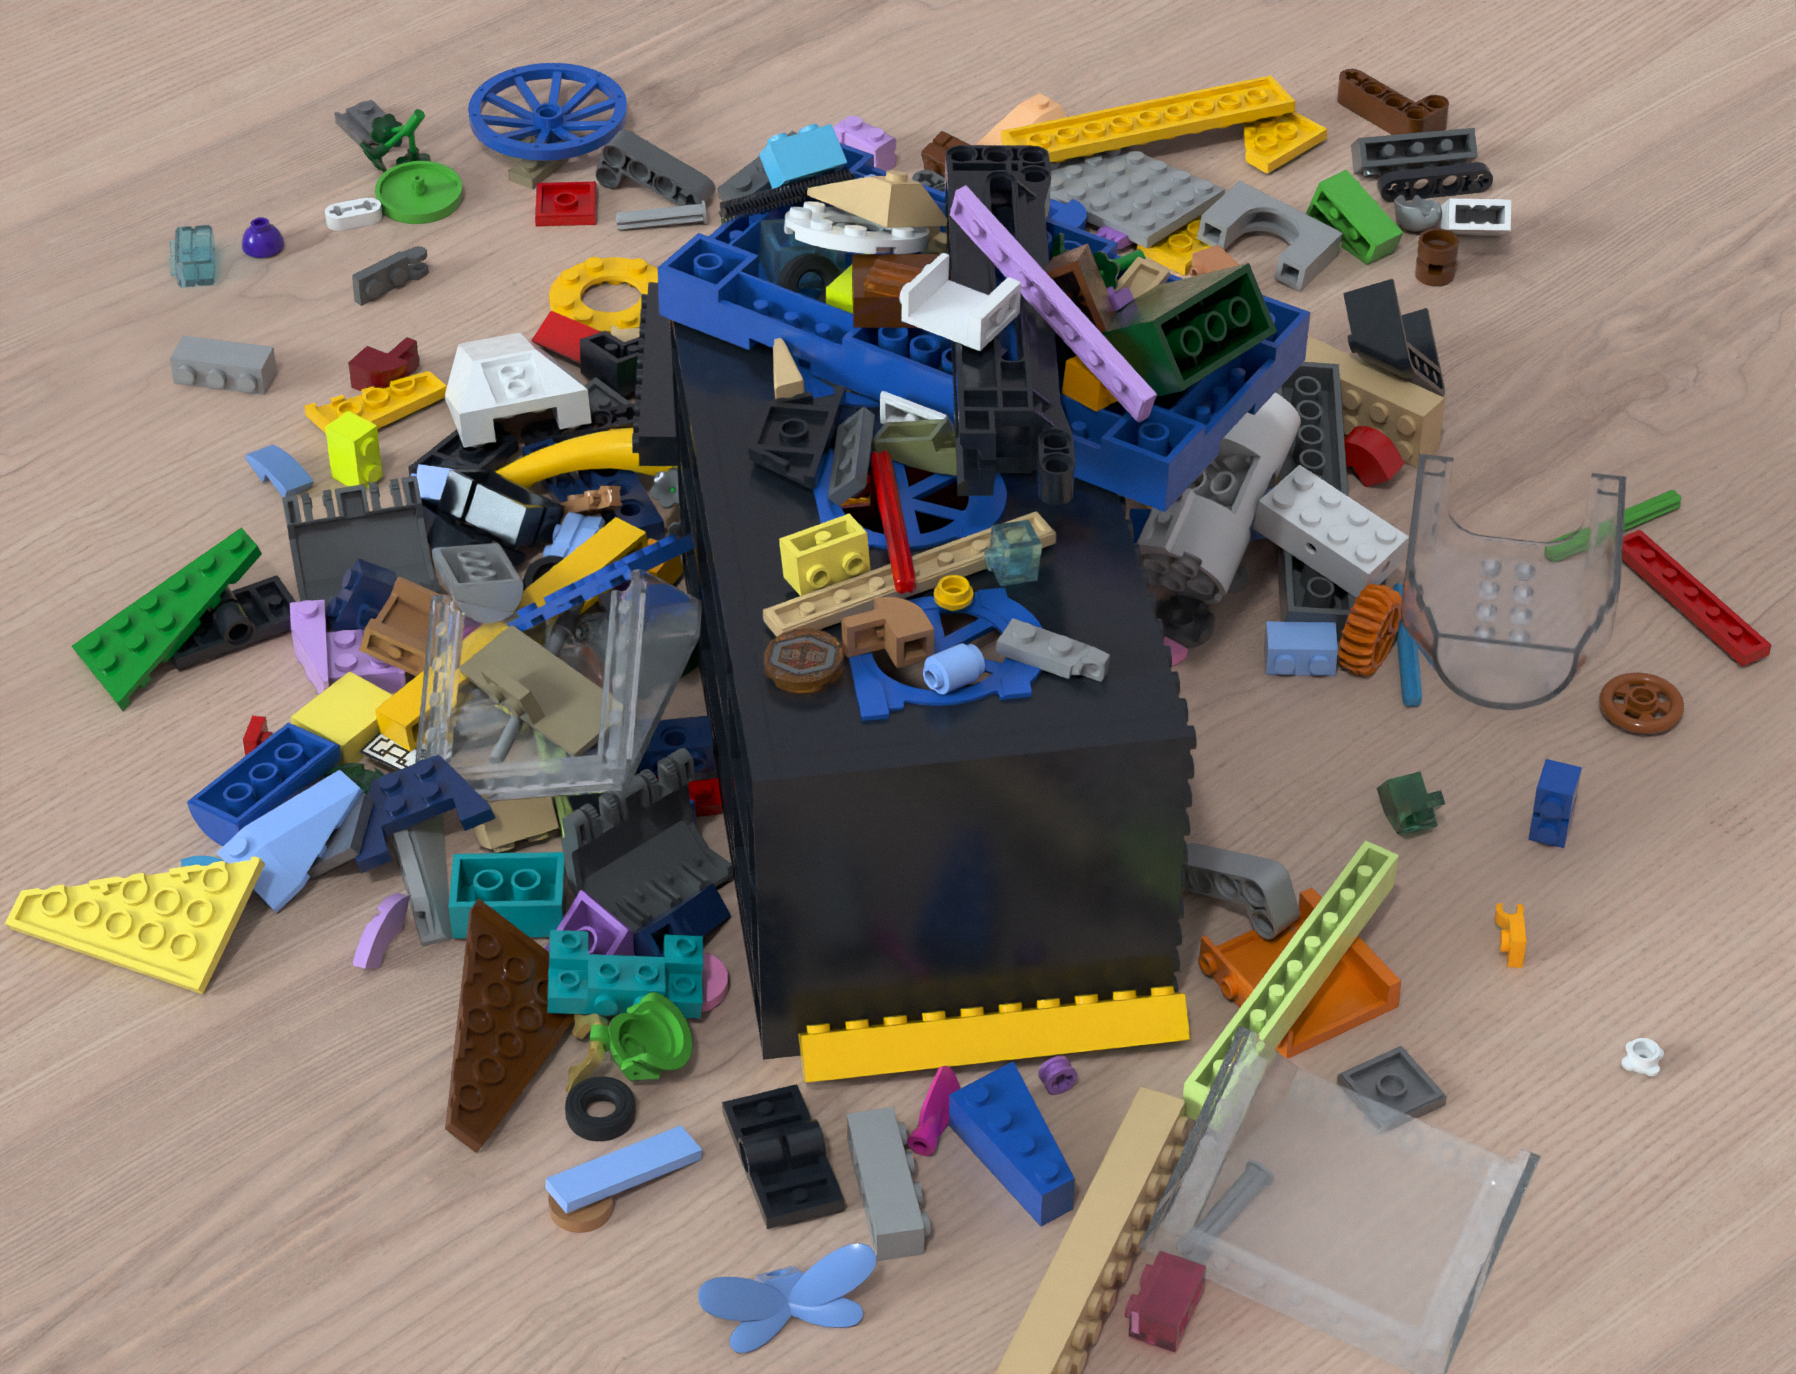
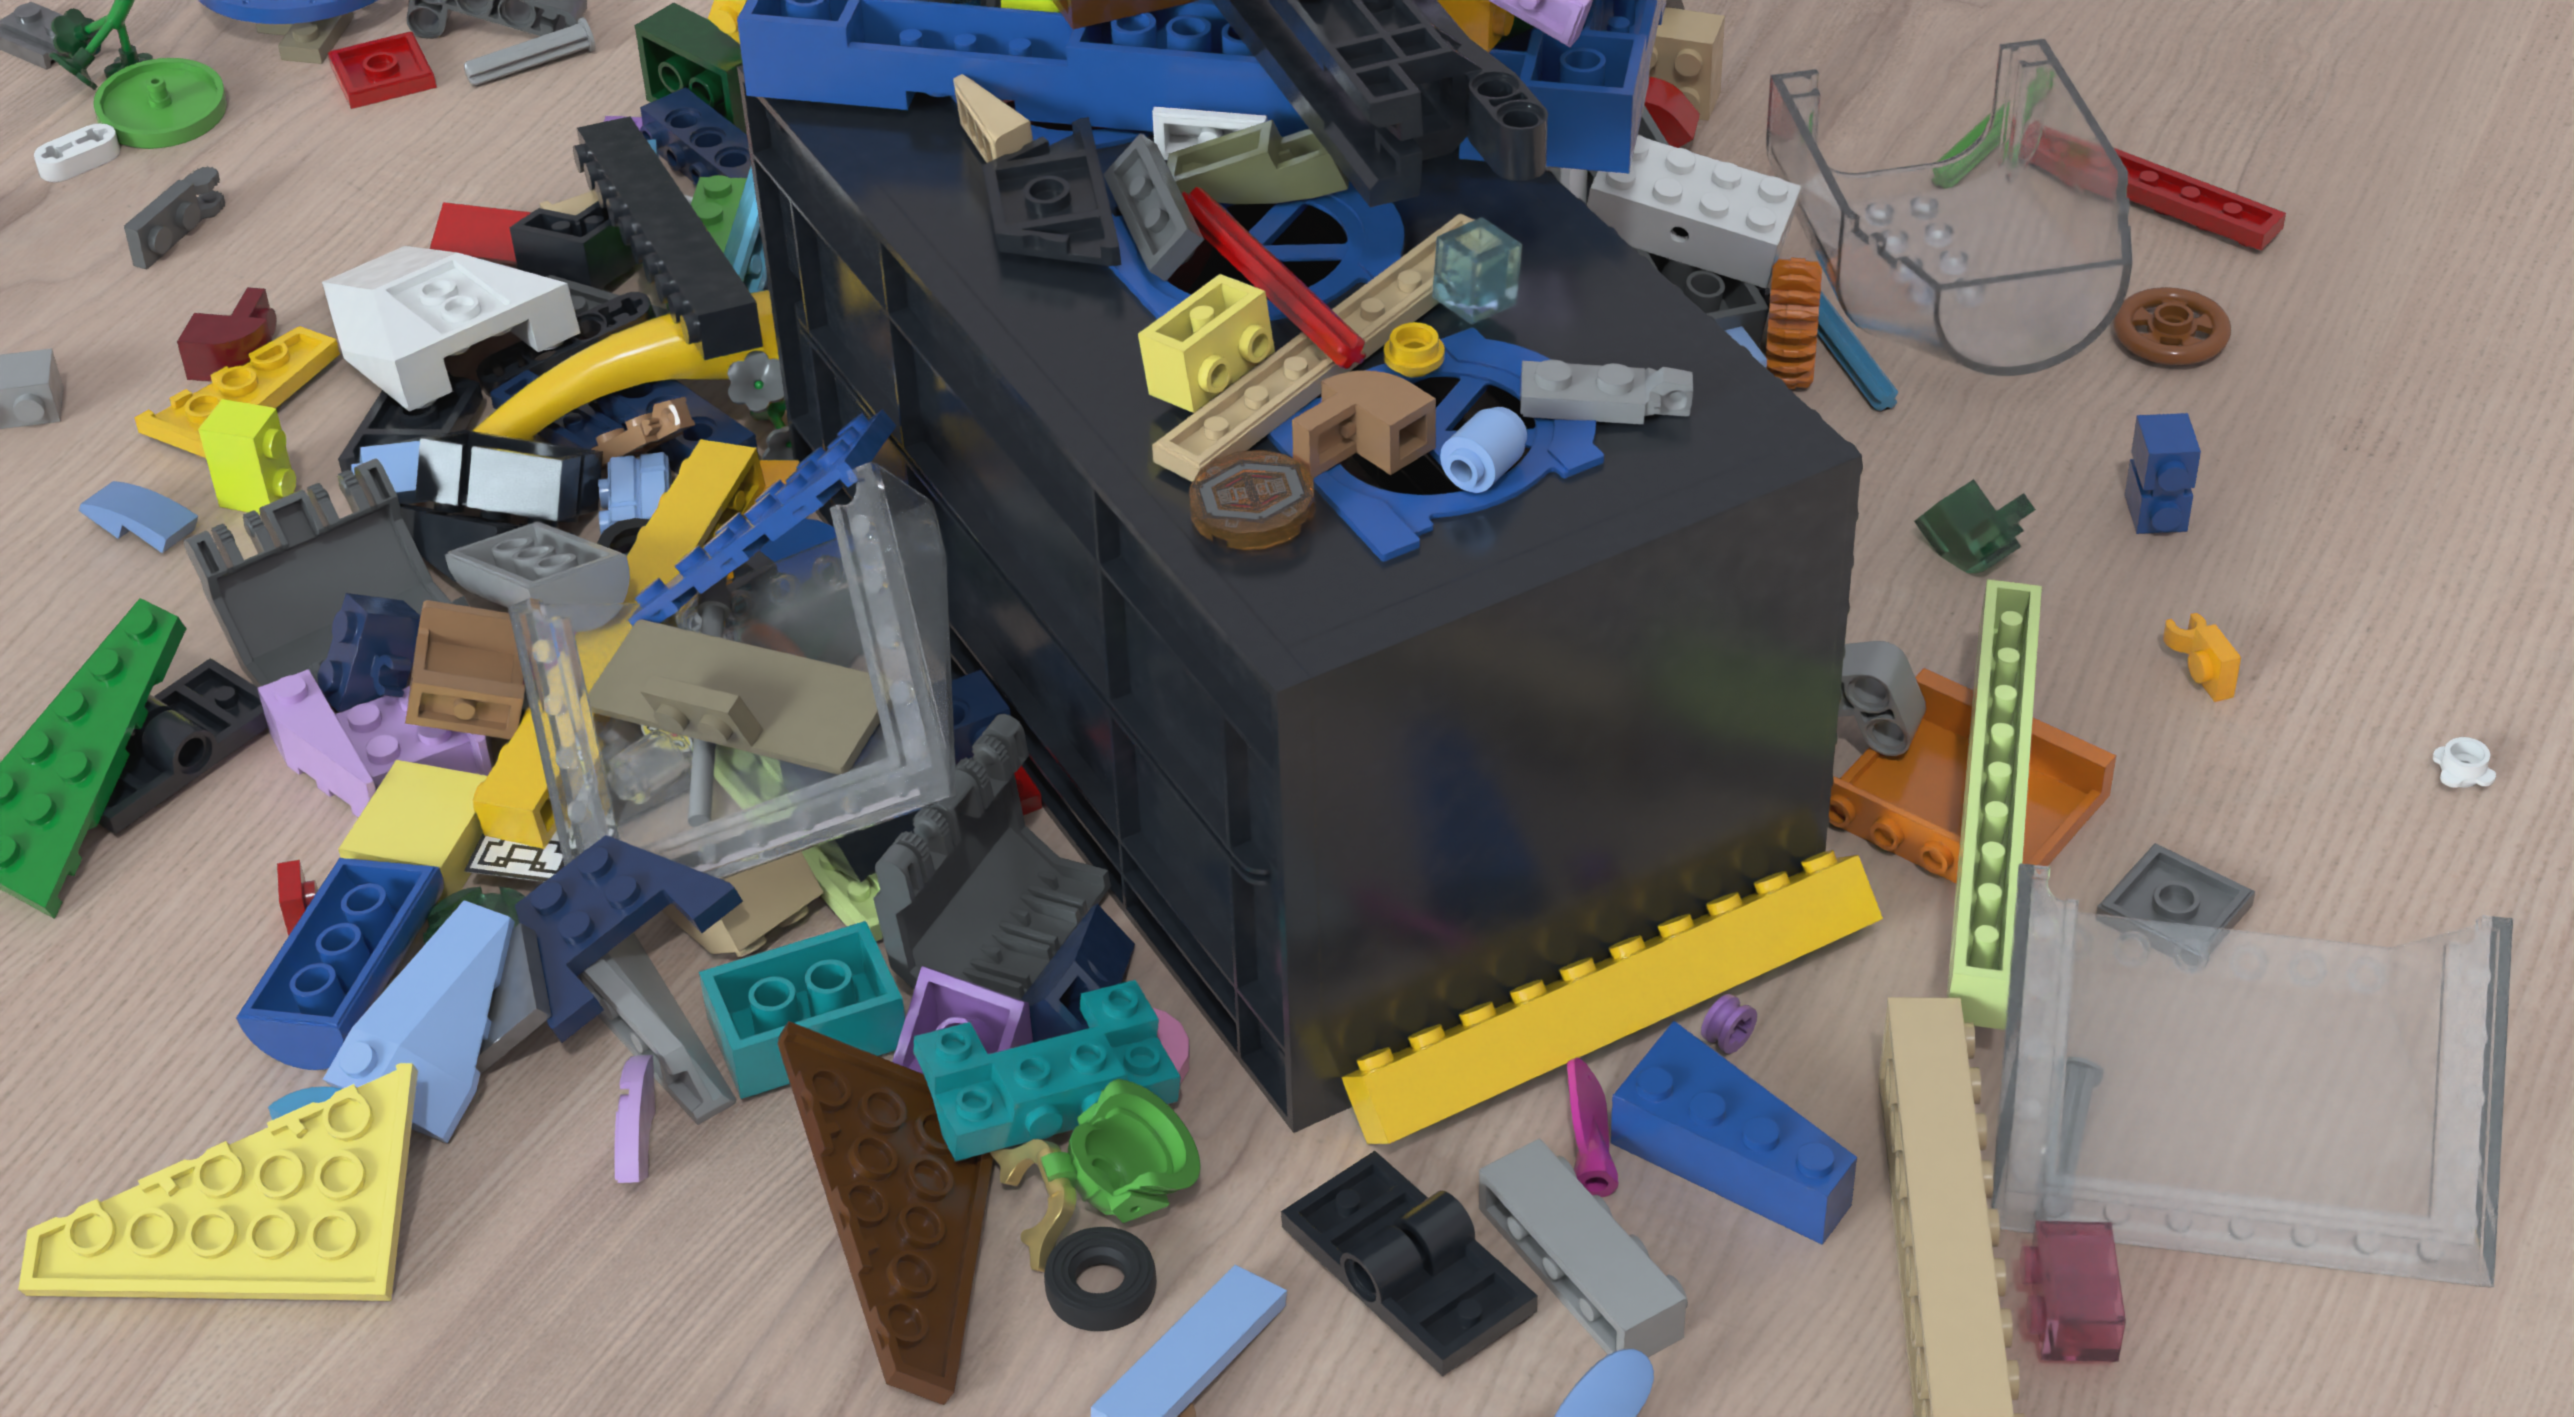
camera: 20 degrees left, 0 degrees up
(571, 285) = (446, 164): yellow plate -> none

